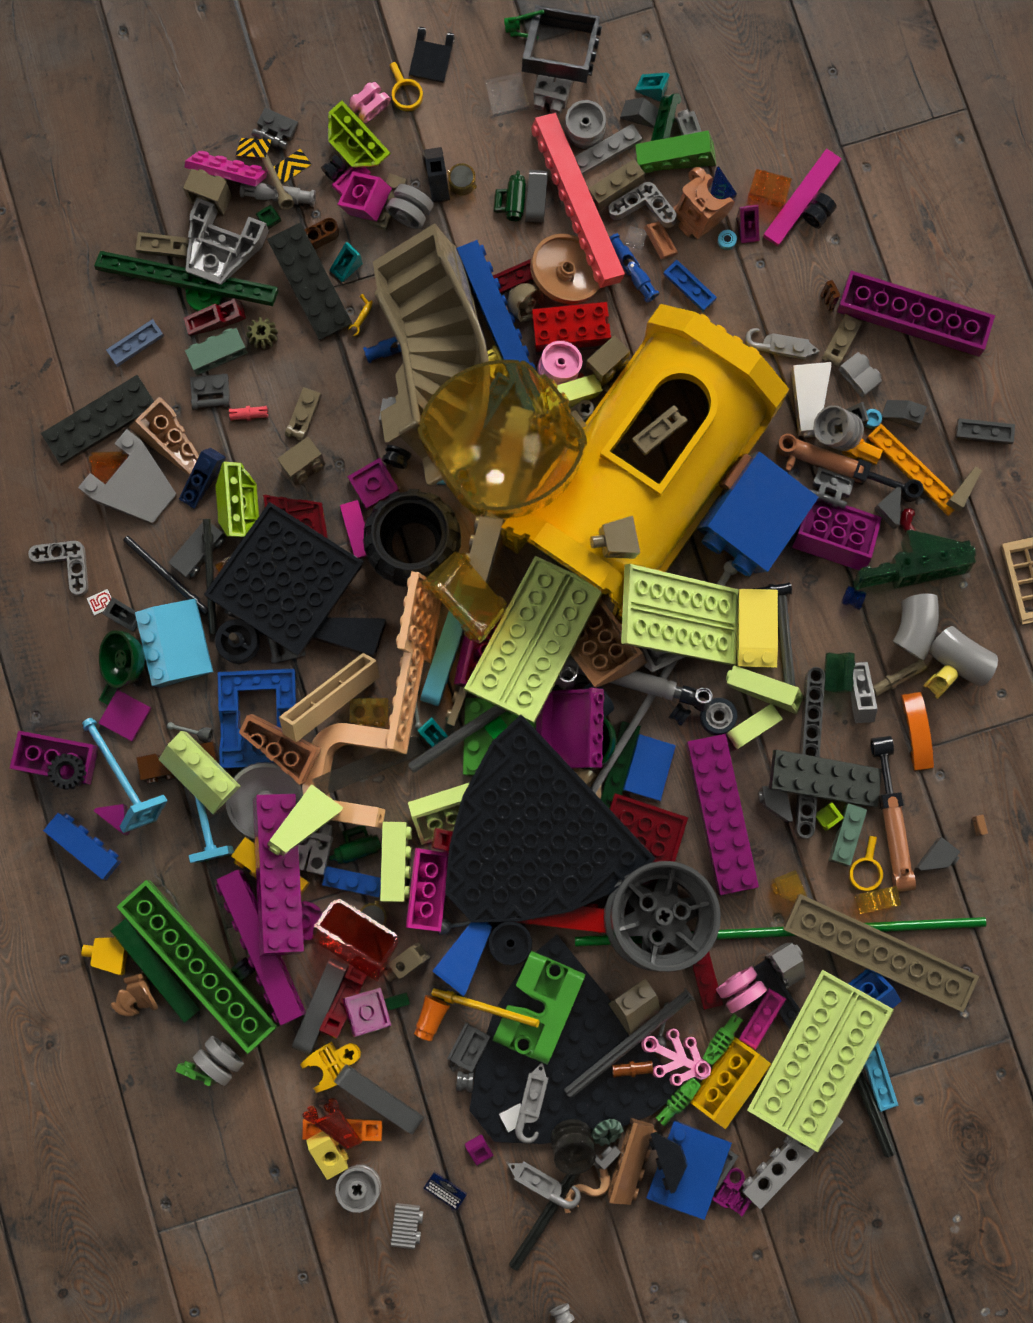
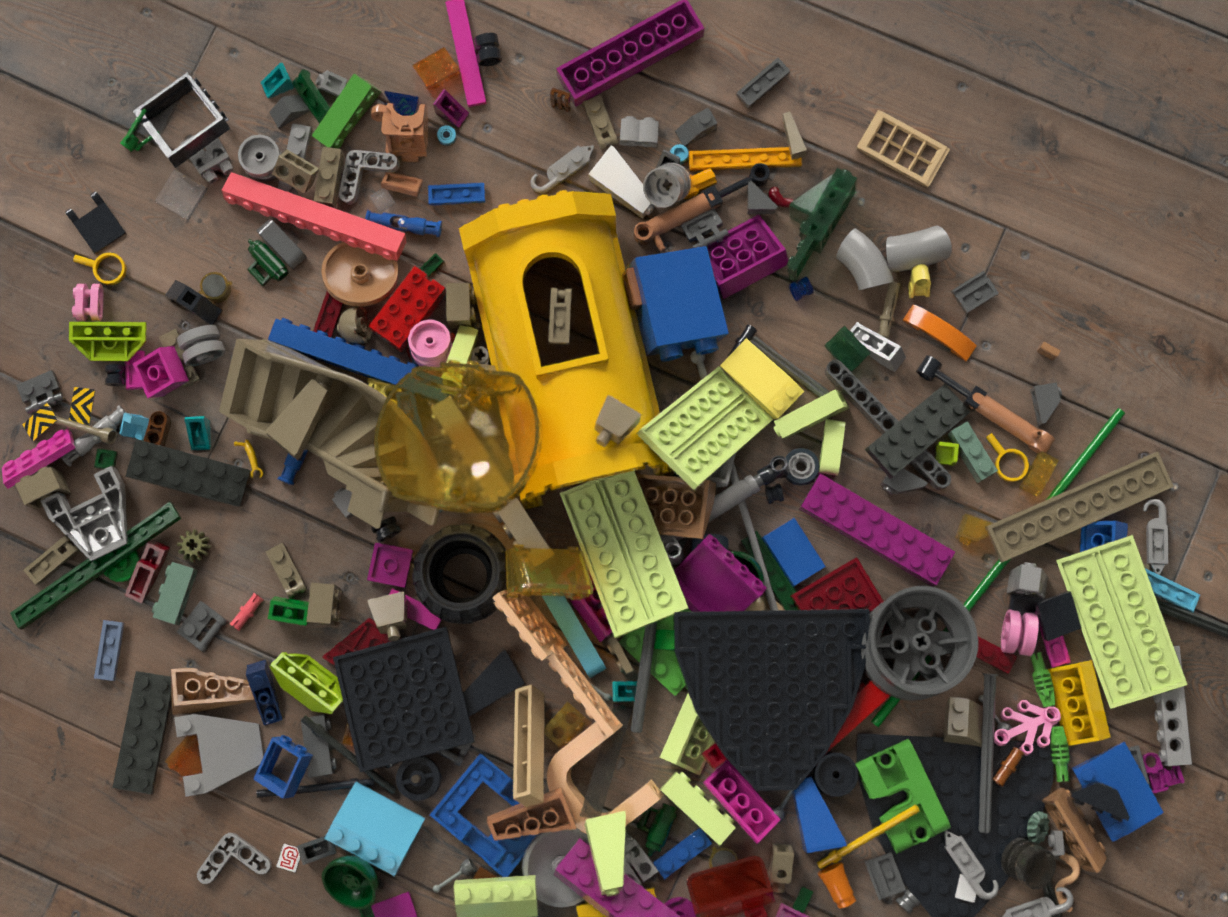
camera: 50 degrees left, 0 degrees up
(142, 537) = (264, 773): none -> blue window
(274, 439) = (288, 610): none -> green brick
(309, 213) = (134, 426): none -> medium azure panel
(337, 514) = (390, 614): none -> torso
(417, 318) = (298, 420): none -> dark tan slope
(597, 156) = (298, 173): none -> dark tan brick
(621, 316) = (432, 264): none -> dark green piece
(780, 1007) = (1057, 615): none -> black tile
(912, 1033) = (1157, 537): none -> light grey plate
(973, 730) = (974, 292): none -> dark grey plate

